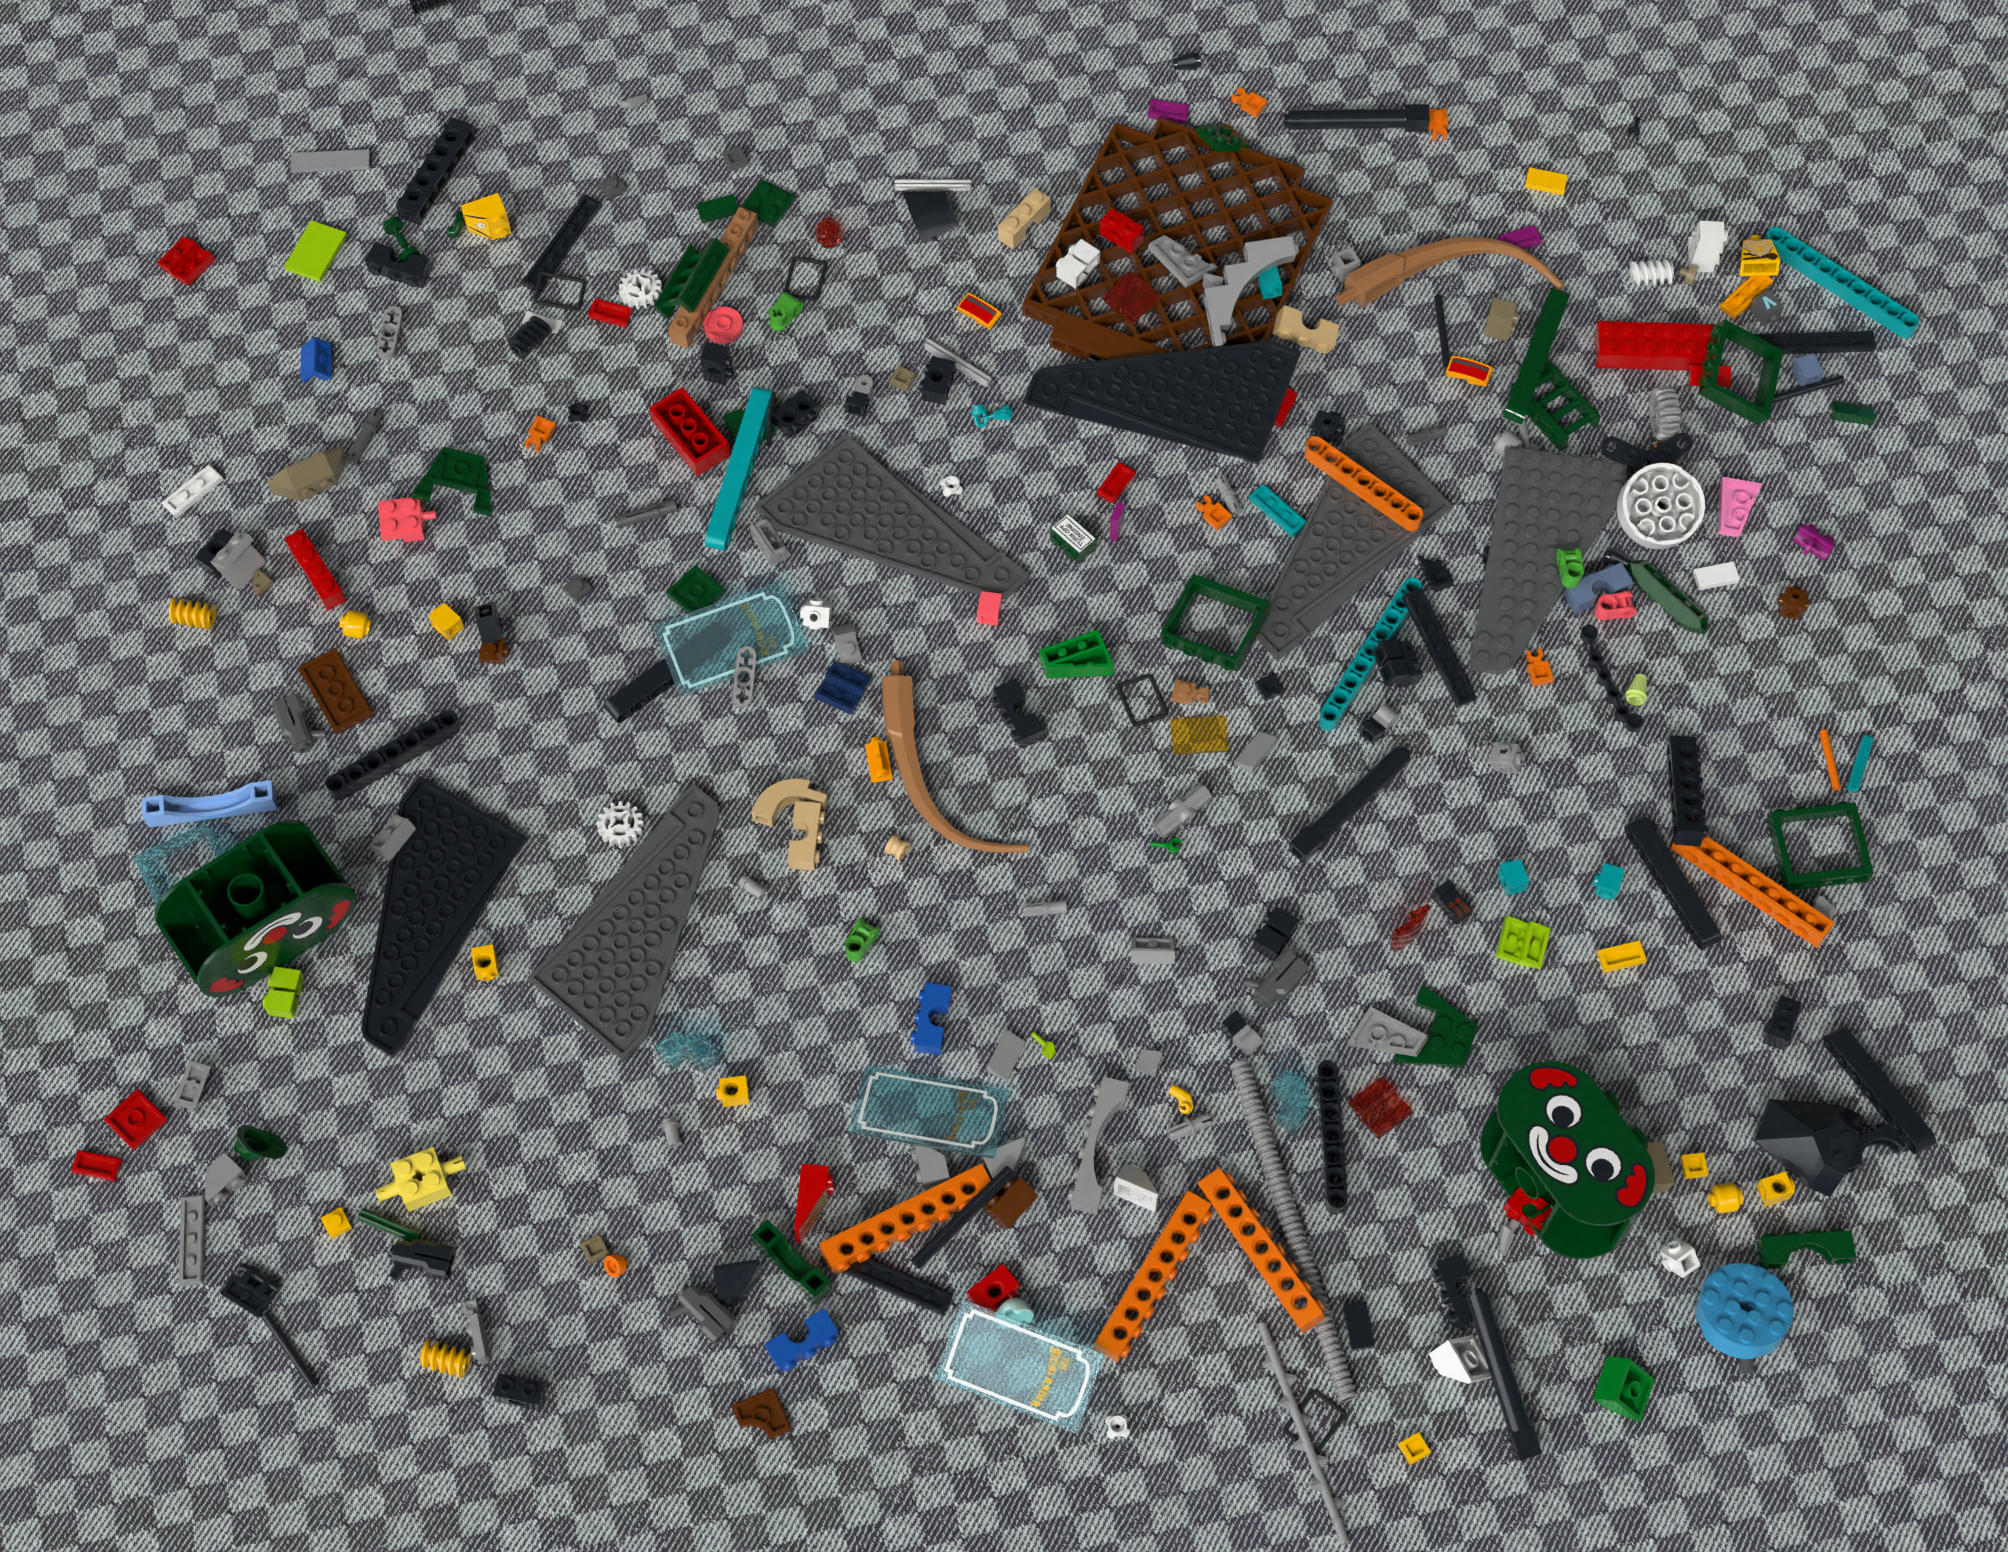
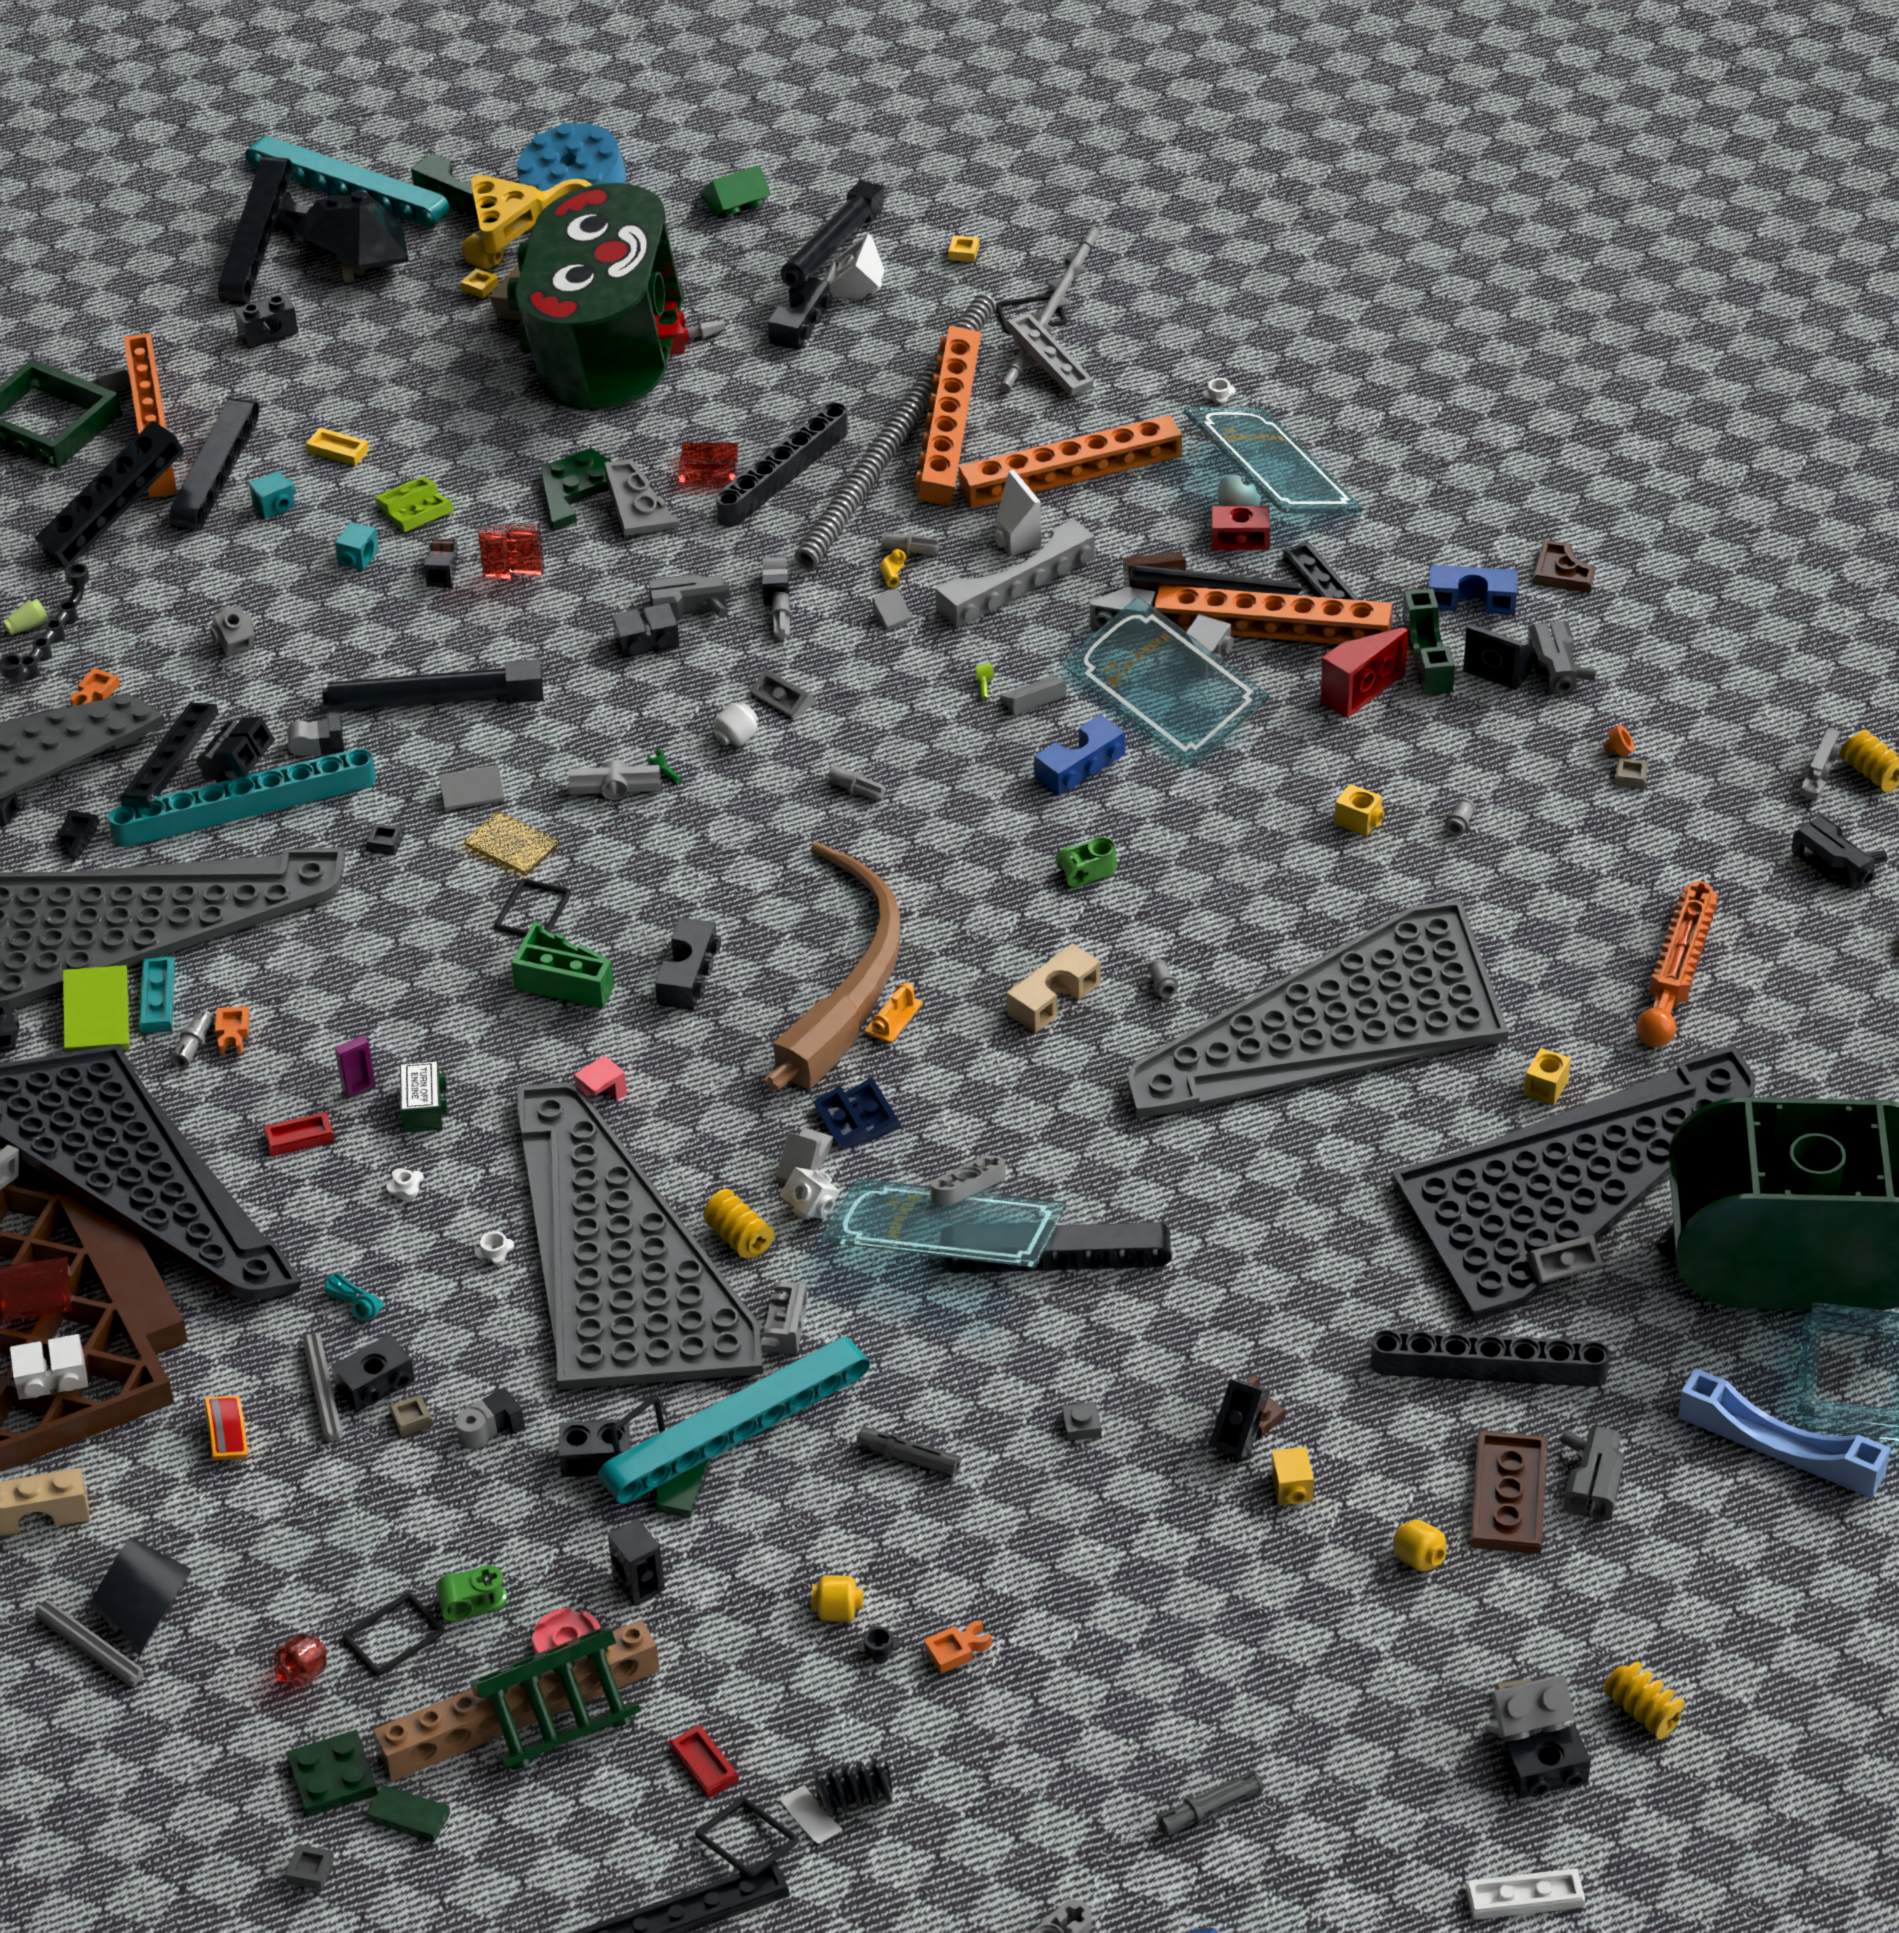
camera: 140 degrees left, 20 degrees down
(309, 475) = (1333, 1787): dark tan wedge -> none
(315, 569) = (1424, 1651): red arch -> none
(388, 1226) = (1854, 906): dark green axle -> none
(403, 519) = (1244, 1645): coral plate -> none
(411, 1169) = (1786, 917): light yellow brick -> none
(458, 1082) = (1677, 962): none -> orange gear
(460, 472) = (1120, 1659): dark green wing -> none
(520, 1392) = (1810, 694): black brick -> none
(614, 418) = (836, 1598): none -> yellow head
(620, 819) = (1262, 1121): white gear -> none
(631, 292) = (634, 1756): white gear -> none
(679, 1047) = (1386, 868): clear light blue brick -> none
(689, 431) = (756, 1504): red brick -> none
(695, 591) = (934, 1317): dark green plate -> none
(784, 794) = (1042, 1041): tan arch -> none
(837, 573) = (738, 1224): none -> yellow piece
(897, 847) = (959, 919): tan wheel -> none
(1032, 495) = (405, 1183): none -> white plate
(1152, 898) = (735, 724): none -> white head
(1186, 692) = (476, 884): medium nougat plate -> none
(1209, 1006) = (781, 615): none -> light grey axle
(1223, 594) = (361, 866): dark green window -> none
(1253, 1368) = (1050, 354): none -> light grey plate
(1290, 1091) = (788, 499): clear light blue brick -> none
(1292, 473) = (96, 1008): none -> lime tile
(1358, 1326) = (916, 343): black tile -> none
(1360, 475) = (41, 936): orange beam -> none
(1742, 1224) = (509, 208): none -> yellow piece
(1767, 1192) = (432, 233): yellow brick -> none
(1889, 1200) = (343, 178): none -> teal beam

